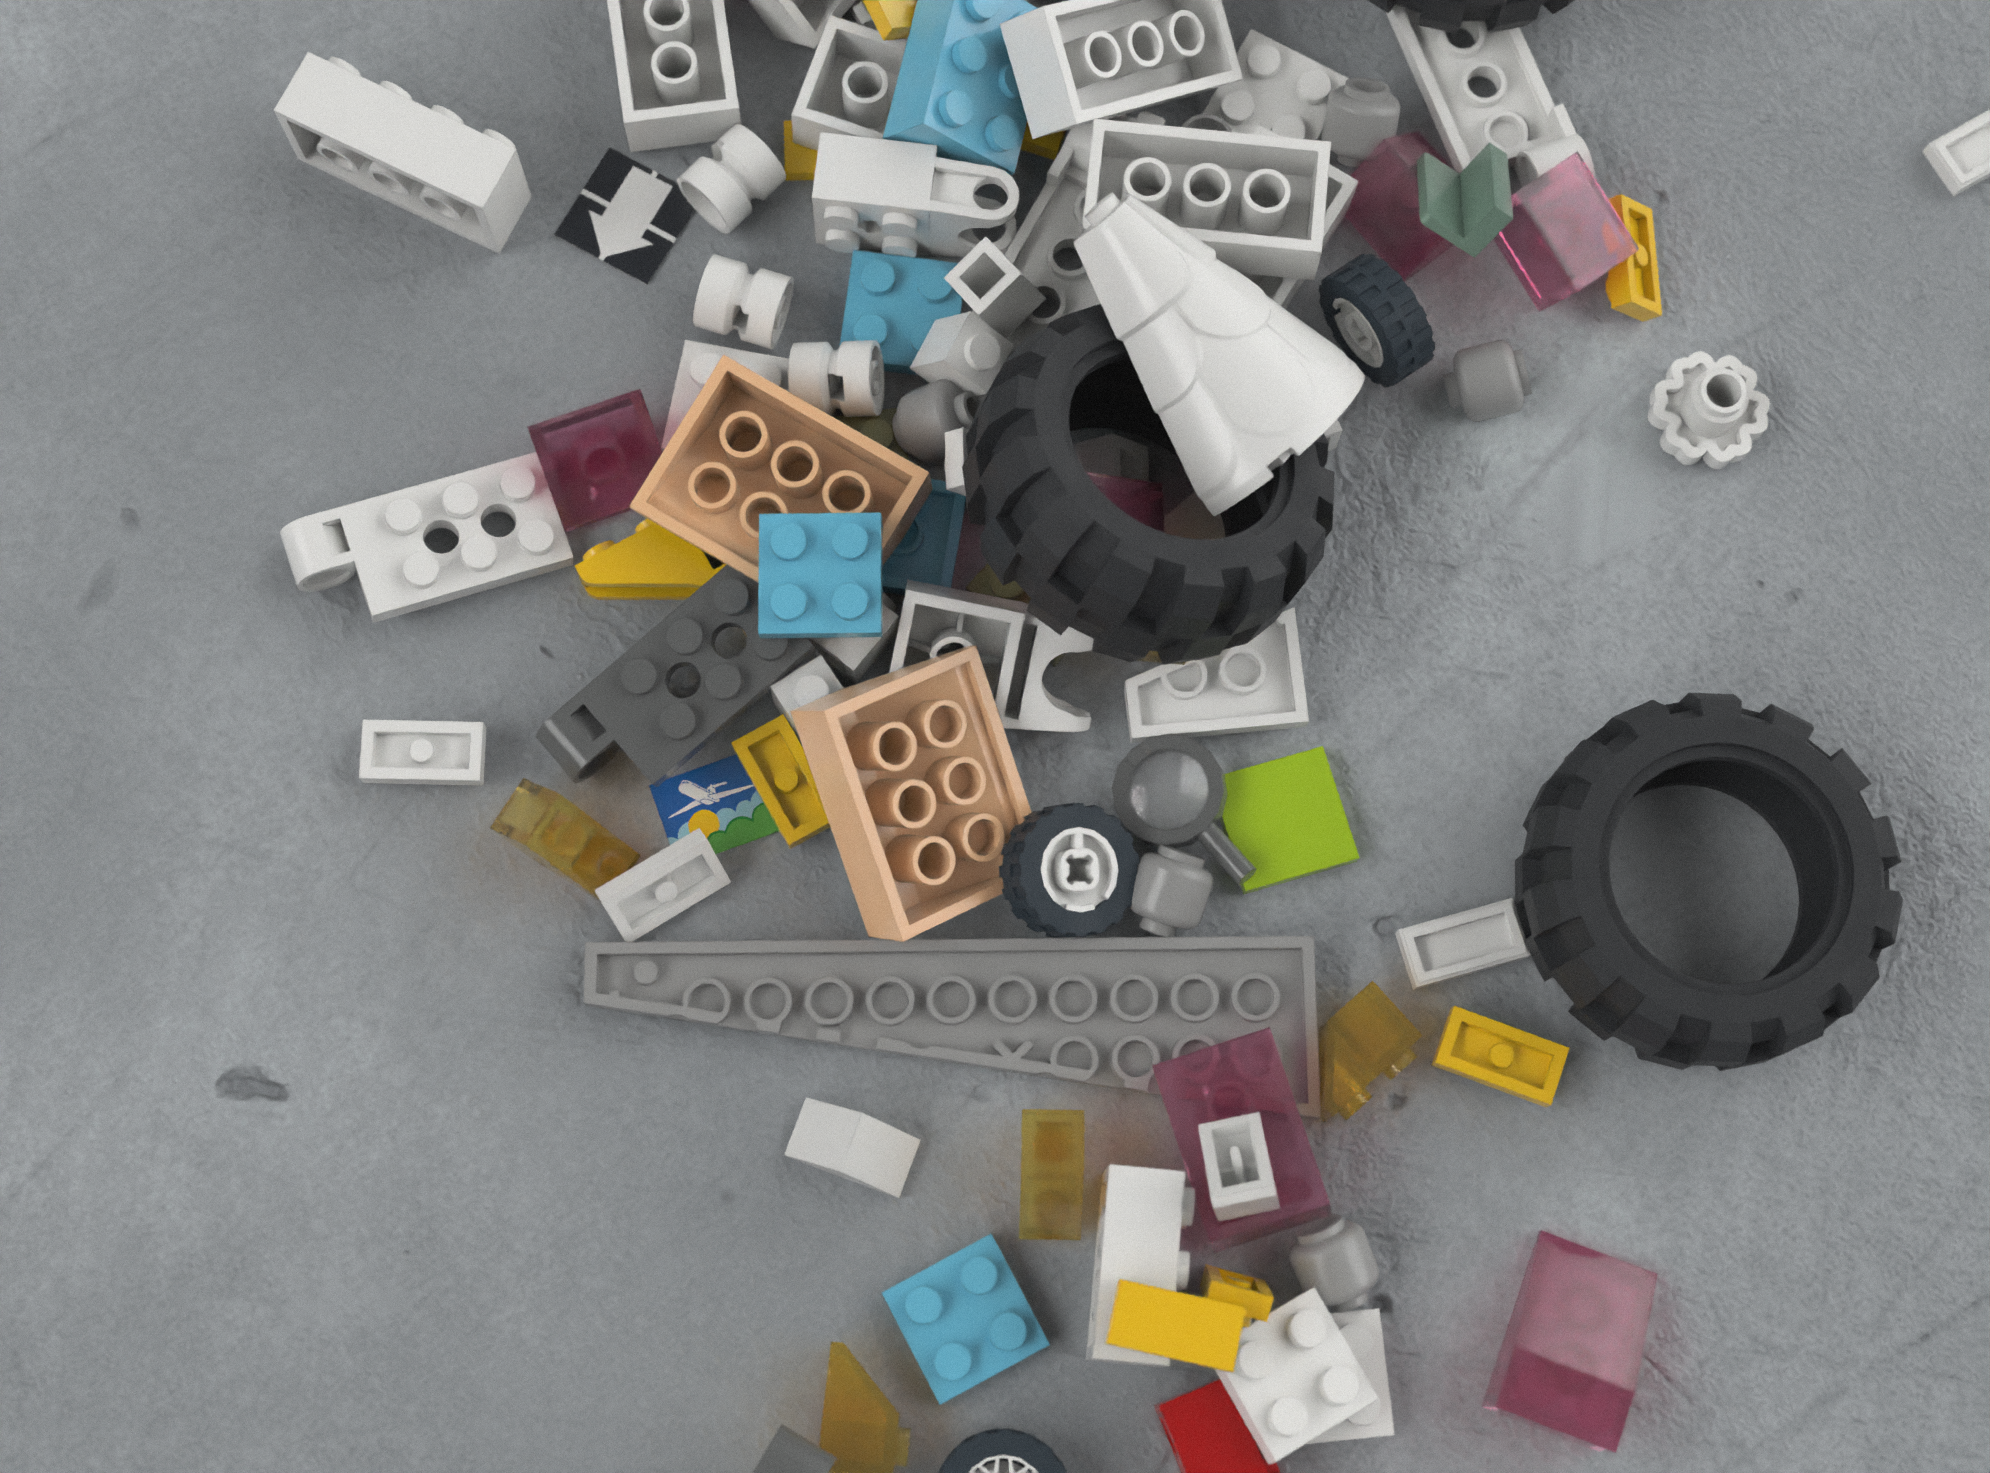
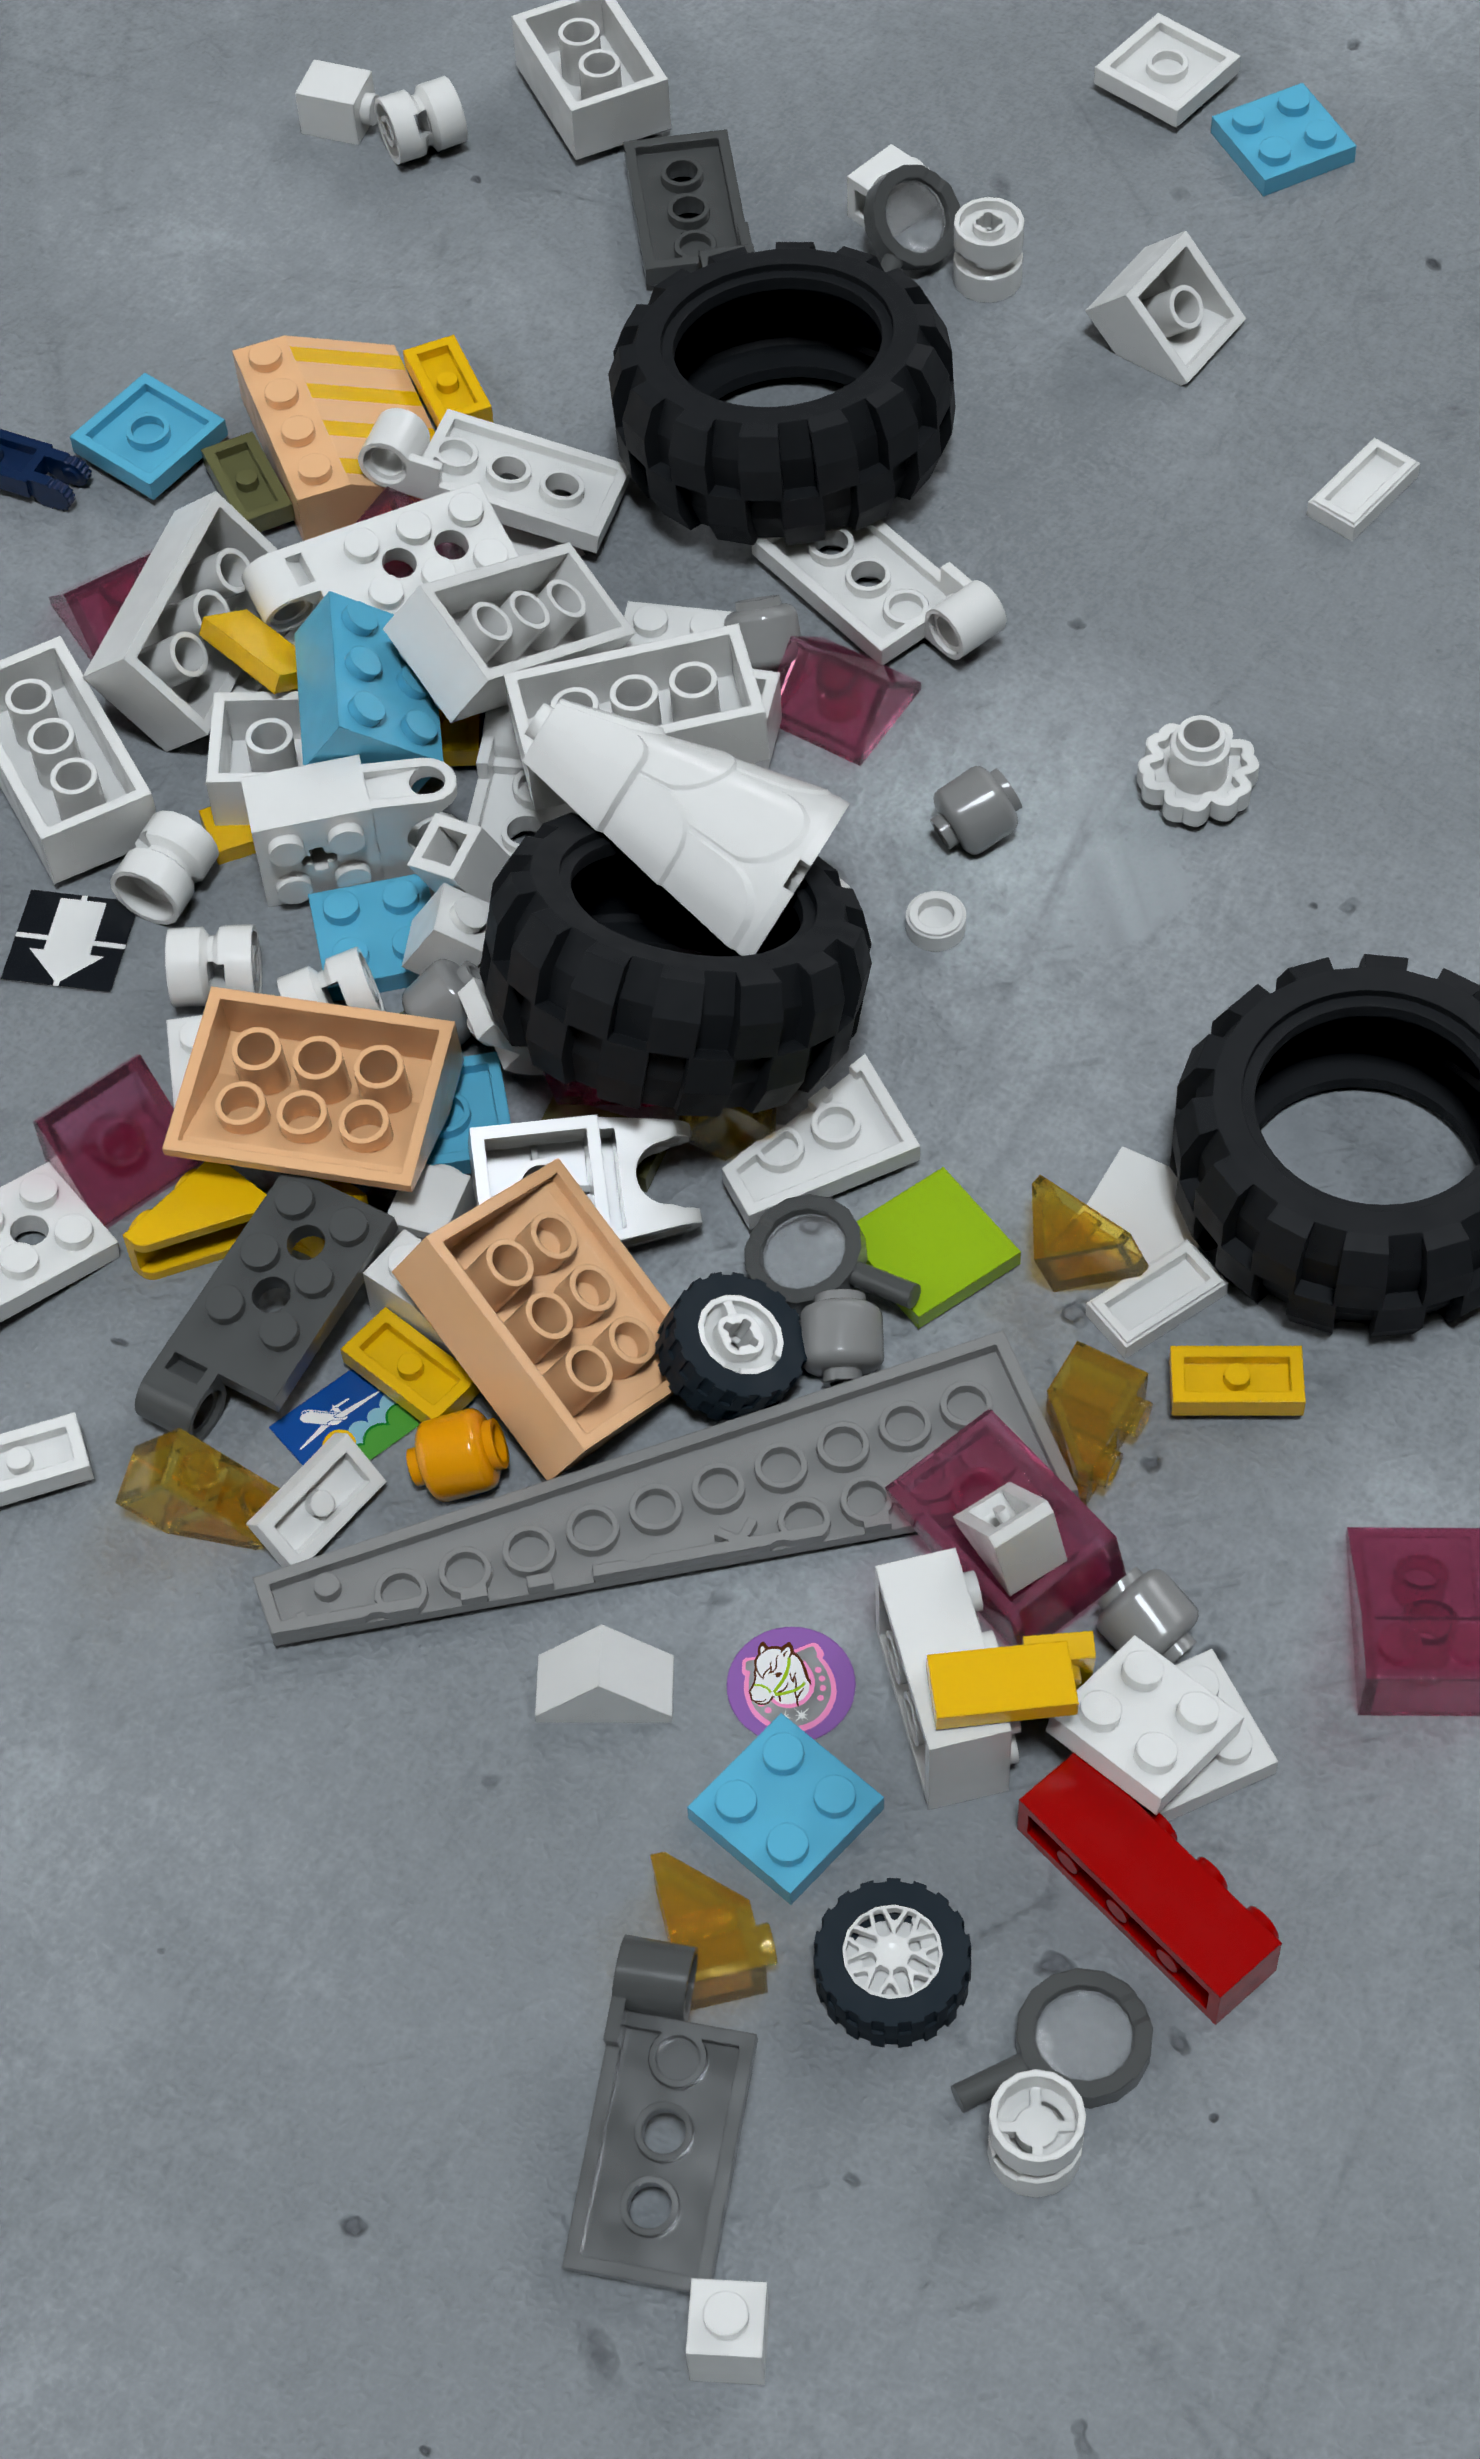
camera: 10 degrees left, 20 degrees down
(799, 884) = (458, 1455): none -> light orange head
(820, 575) = (379, 1142): medium azure plate -> none
(989, 1200) = (793, 1675): none -> sticker
(1051, 1174) = (820, 1625): clear yellow slope -> none
(1376, 319) = (857, 770): black wheel -> none
(1407, 872) = (1077, 1243): none -> clear yellow slope
(1410, 480) = (935, 921): none -> white tile
(1466, 206) = (899, 659): sand green panel -> none
(1477, 846) = (1141, 1200): none -> white sticker
(1563, 233) = (987, 663): clear pink slope -> none
(1635, 281) = (1069, 671): yellow plate -> none

